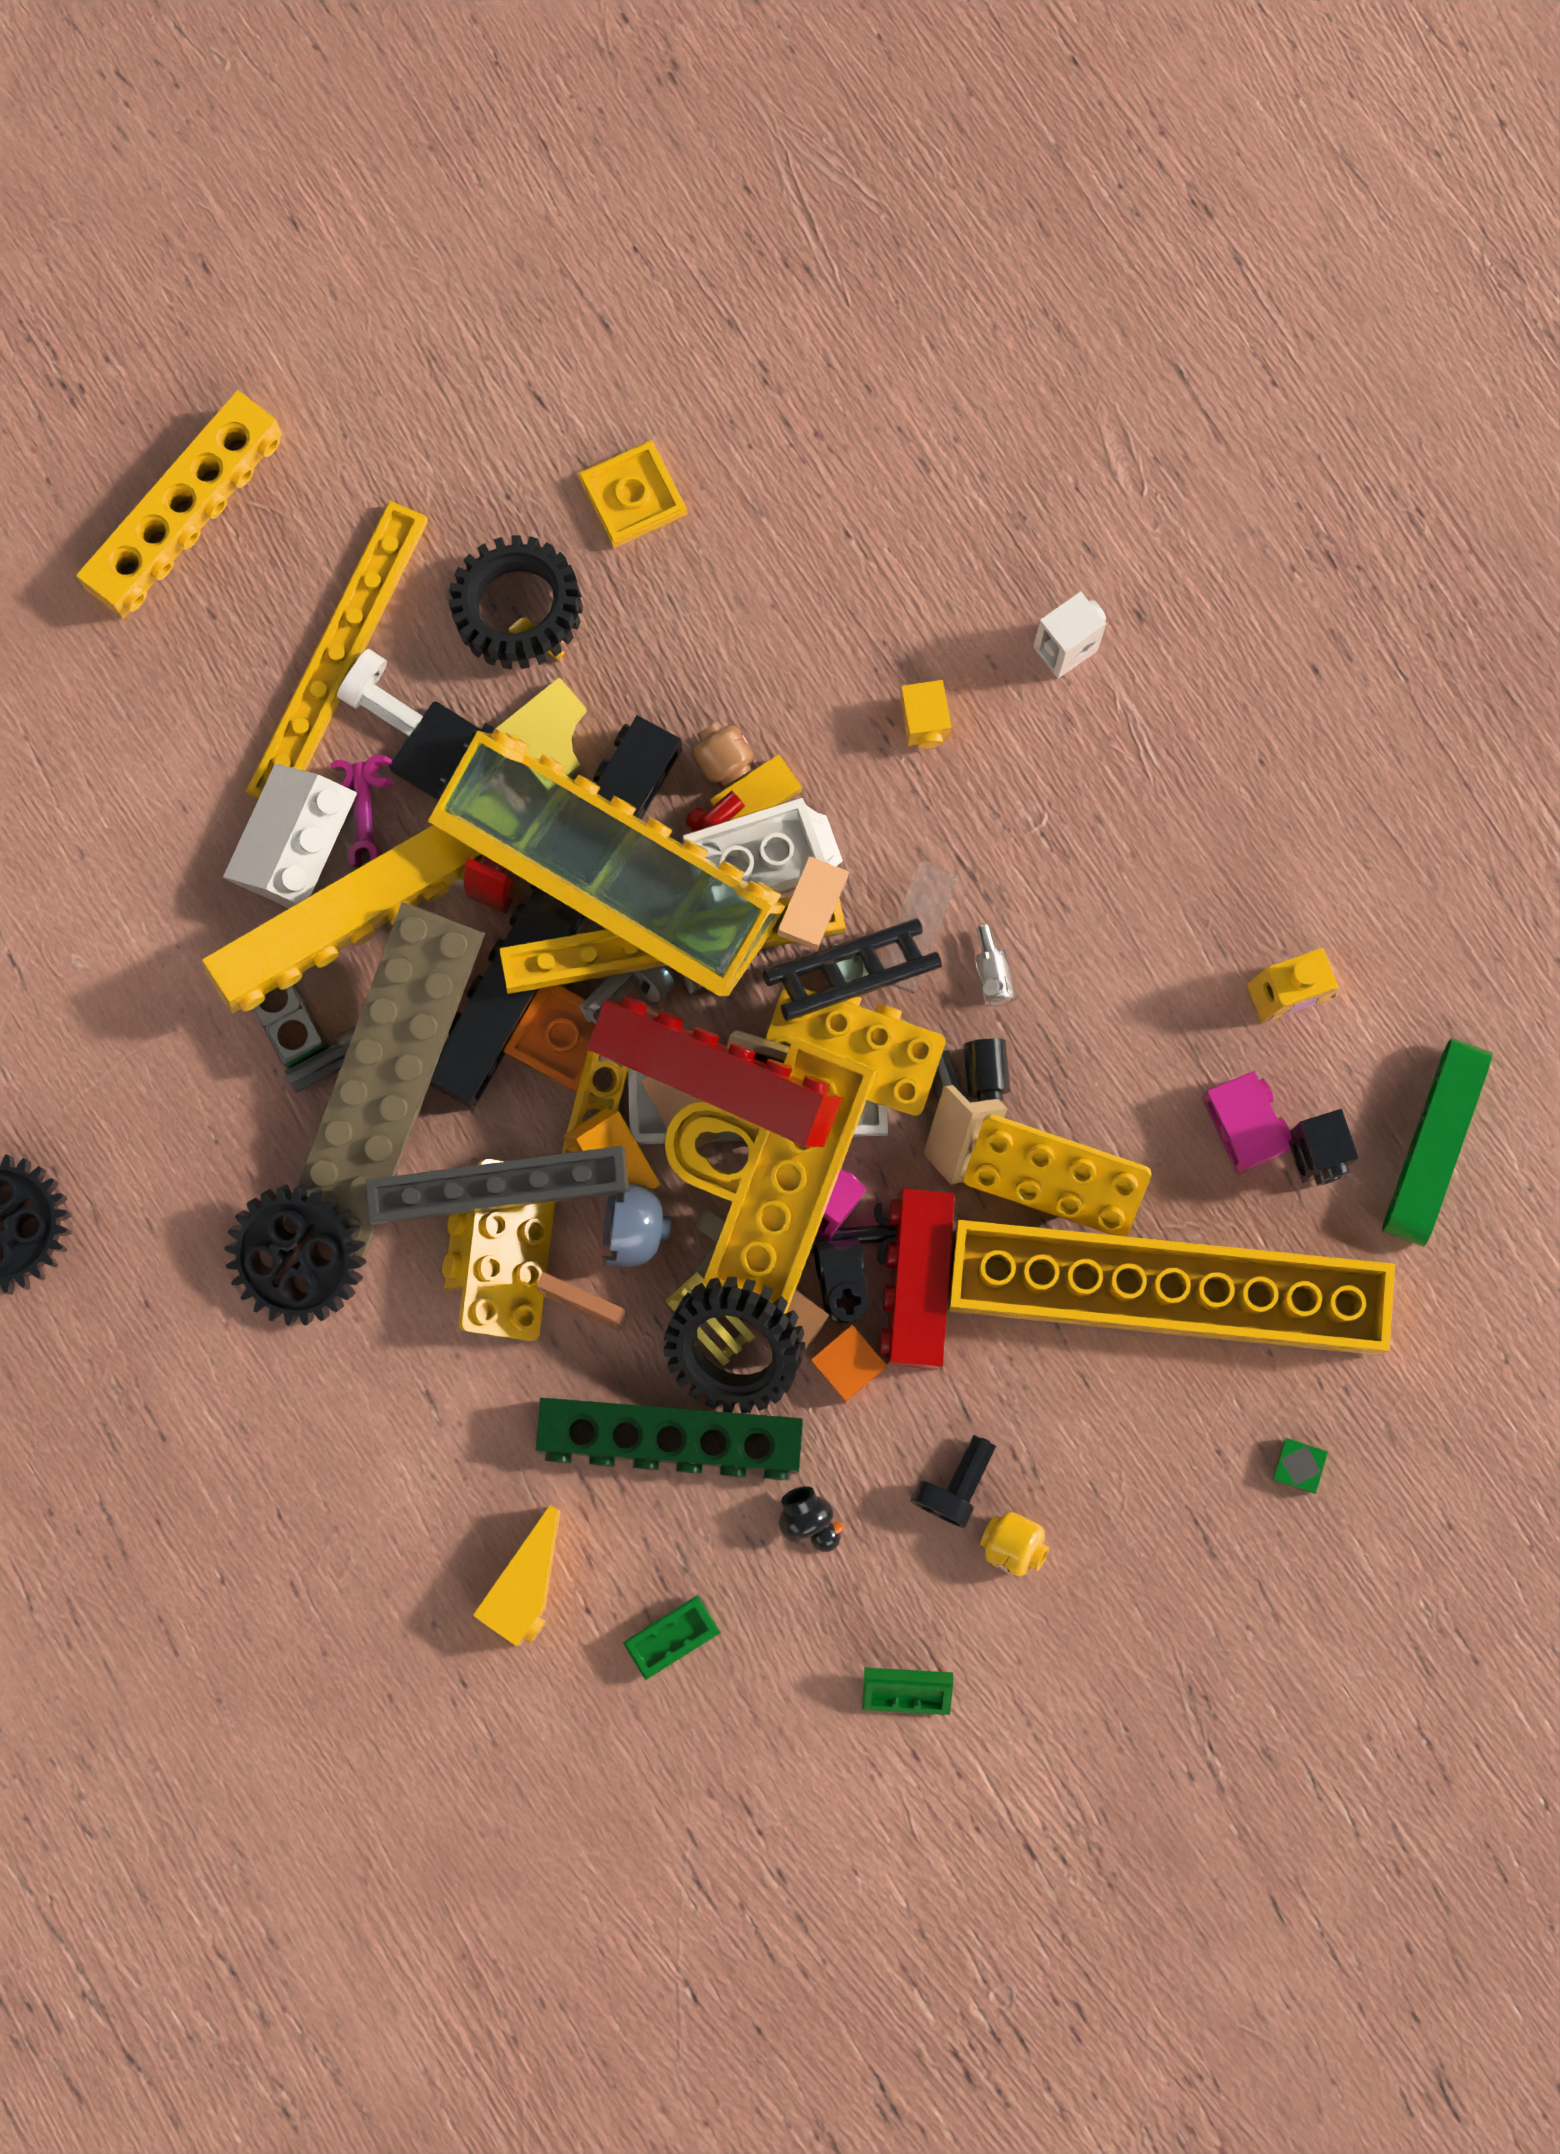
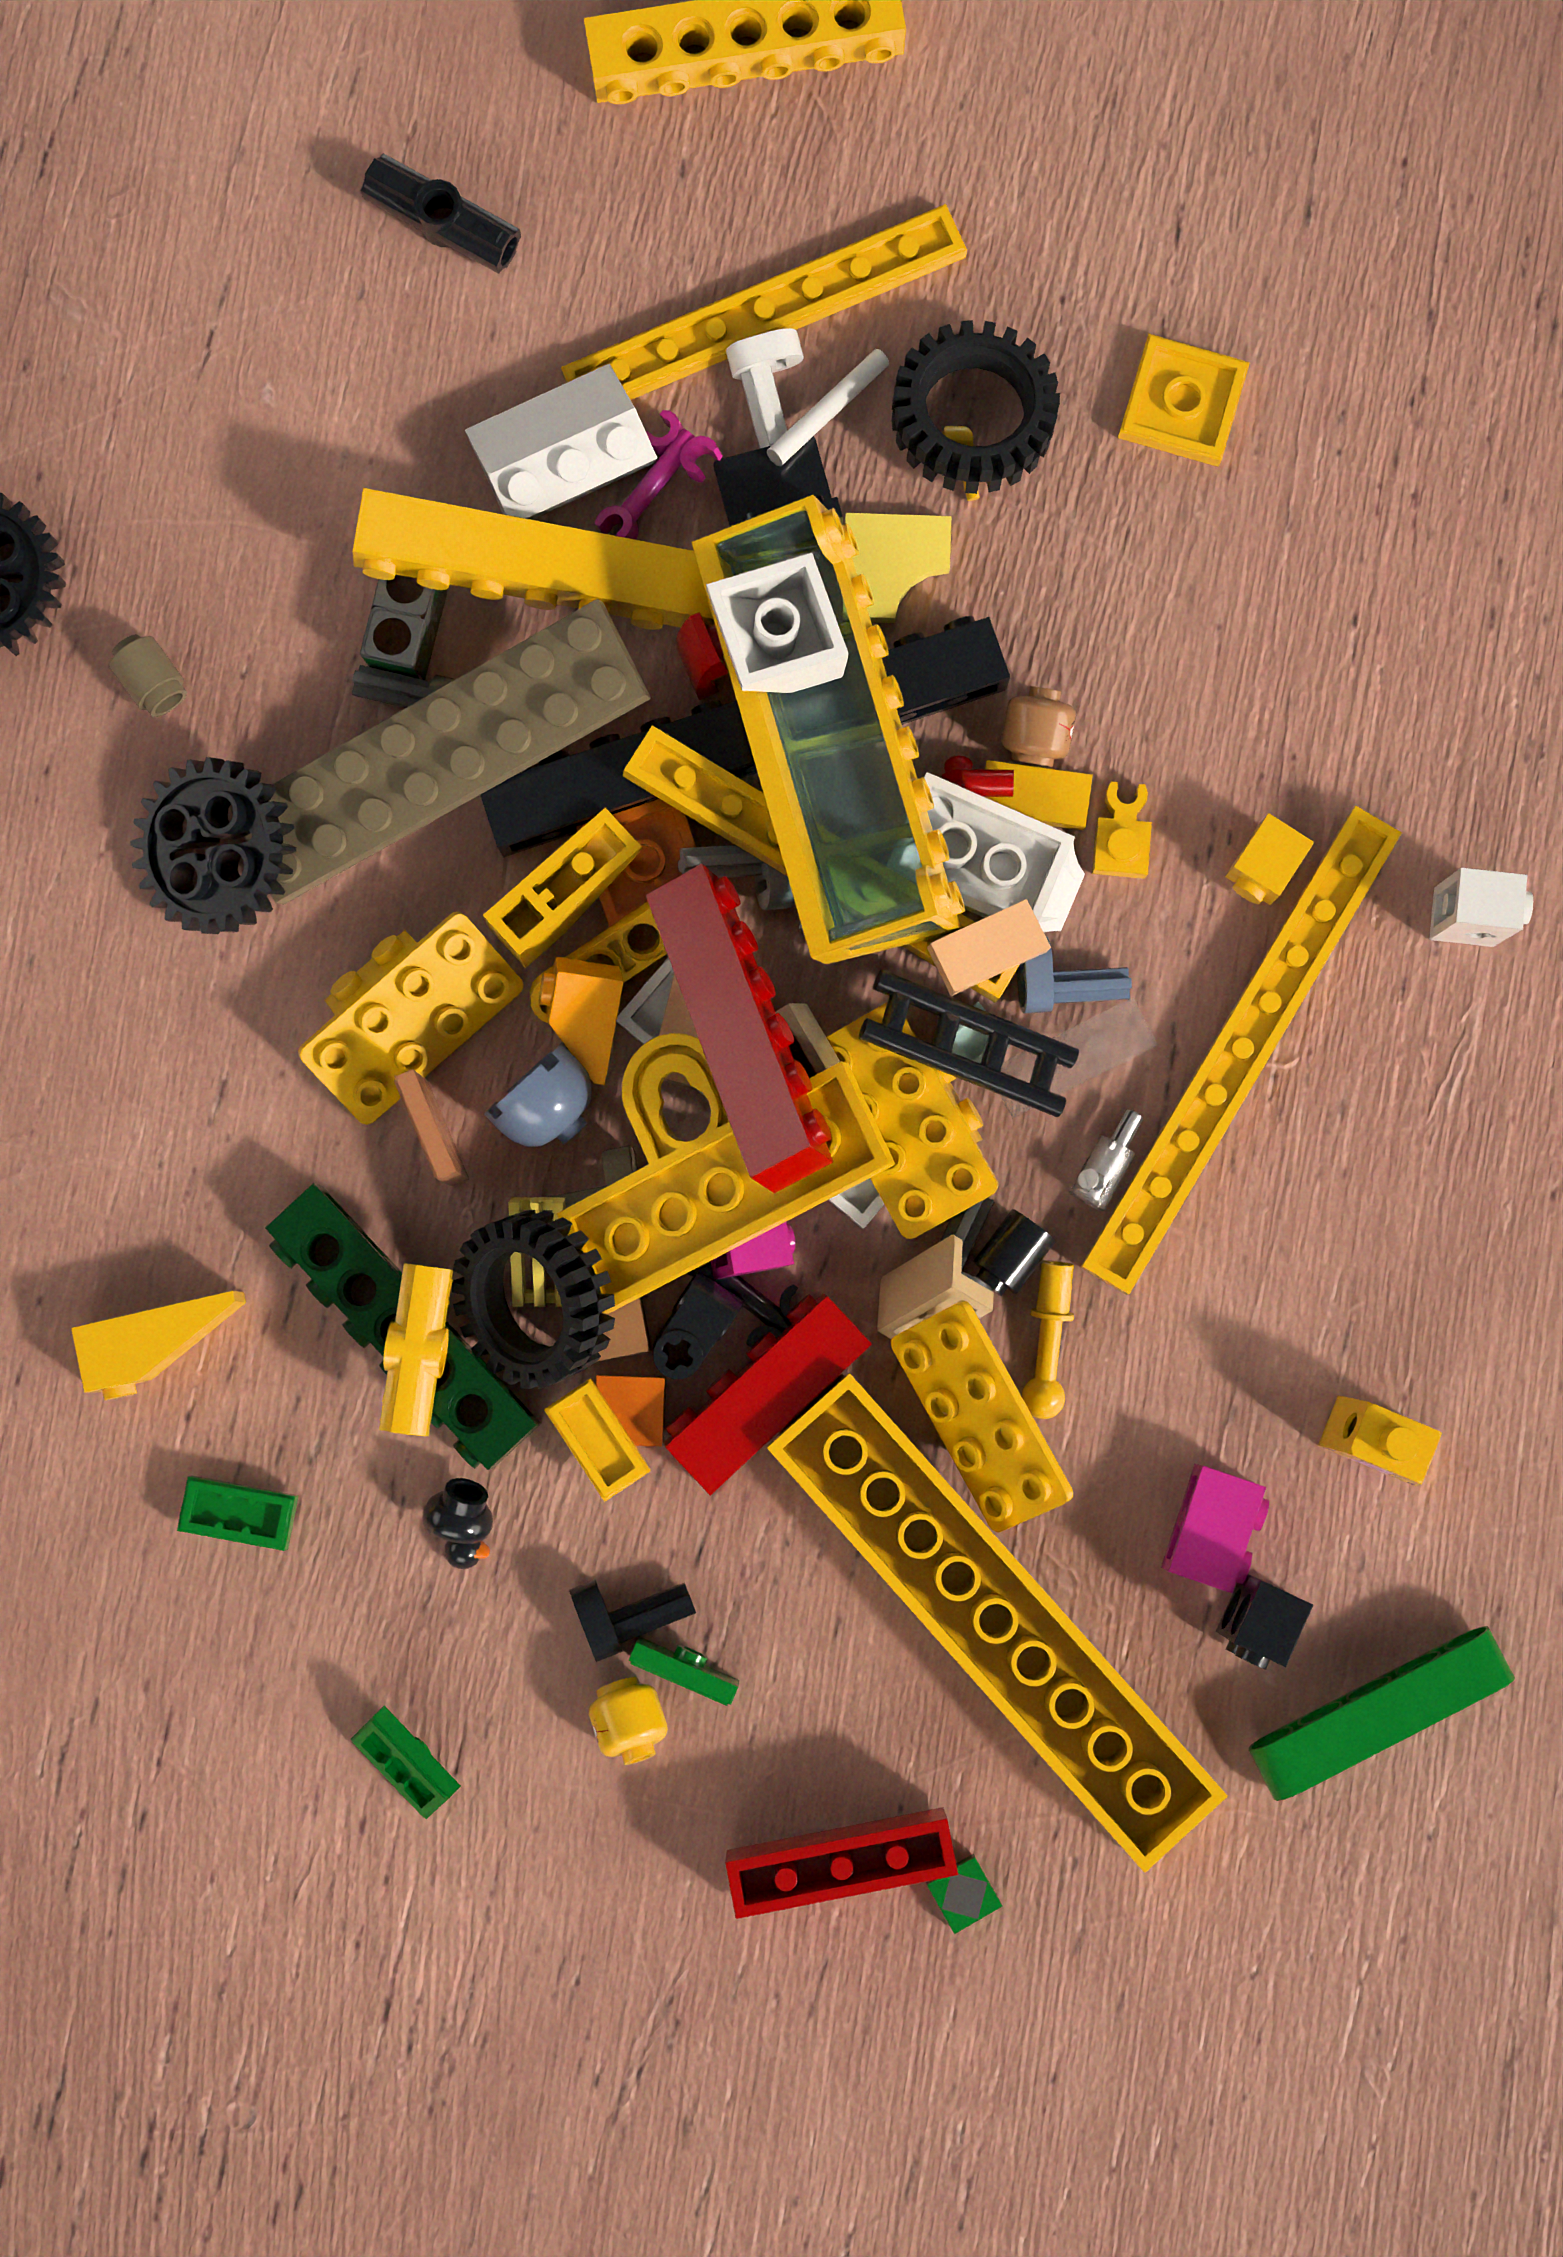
camera: 45 degrees right, 5 degrees up
(64, 767) = (416, 197): none -> black piece
(160, 1190) = (148, 675): none -> dark tan brick
(428, 677) = (828, 407): none -> white bar
(497, 1185) = (447, 950): dark grey plate -> none
(527, 822) = (779, 627): none -> white slope
(529, 1092) = (562, 888): none -> yellow slope
(693, 1436) = (416, 1350): none -> yellow piece
(830, 777) = (1121, 841): none -> yellow plate
(846, 1395) = (597, 1439): none -> yellow tile
(863, 901) = (1042, 987): none -> sand blue piece
(1010, 838) = (1240, 1050): none -> yellow plate
(1020, 1482) = (684, 1668): none -> green plate
(1039, 1081) = (1044, 1393): none -> yellow pin
(1213, 1509) = (840, 1862): none -> red brick

